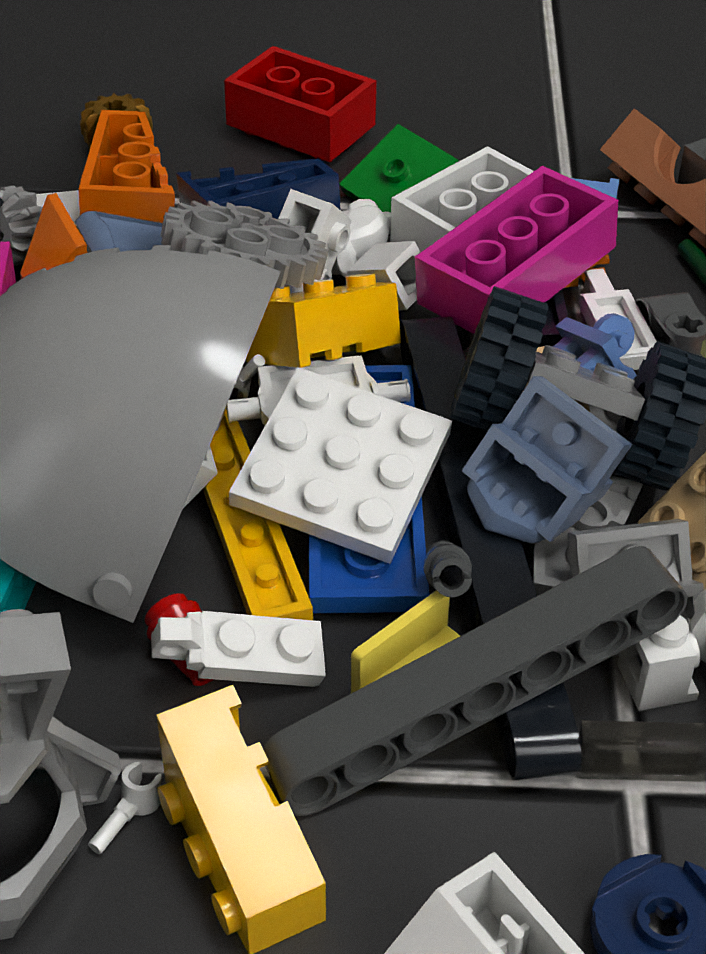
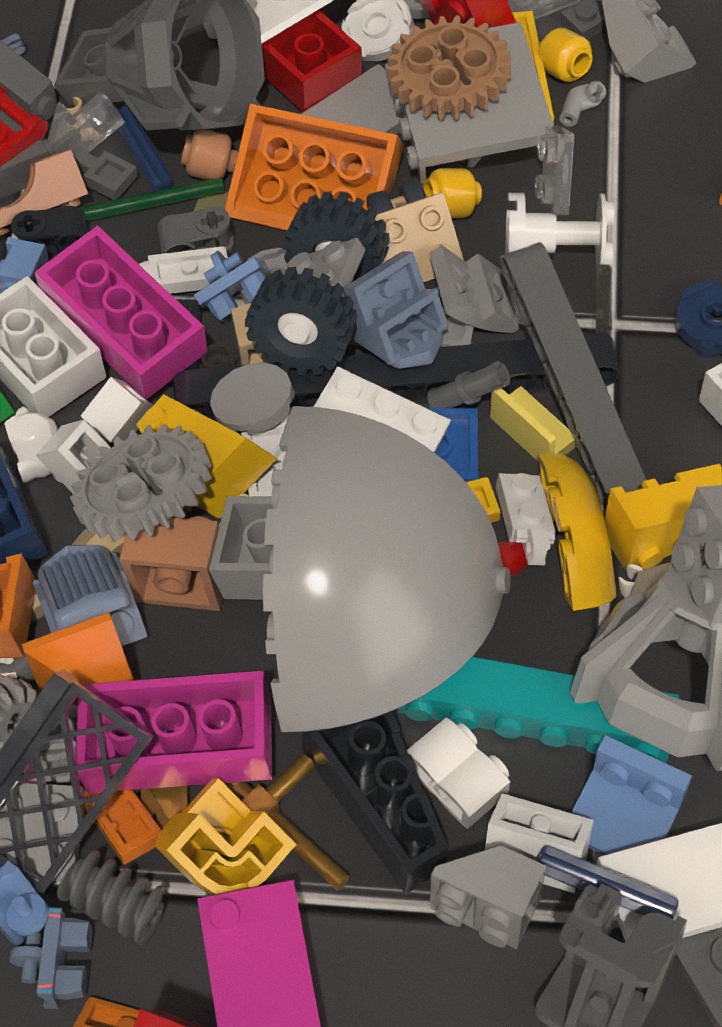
camera: 85 degrees left, 15 degrees up
(271, 684) = (586, 547): none -> yellow brick
(399, 354) = (252, 398): none -> light grey tile
(649, 222) = (52, 227): none -> black piece

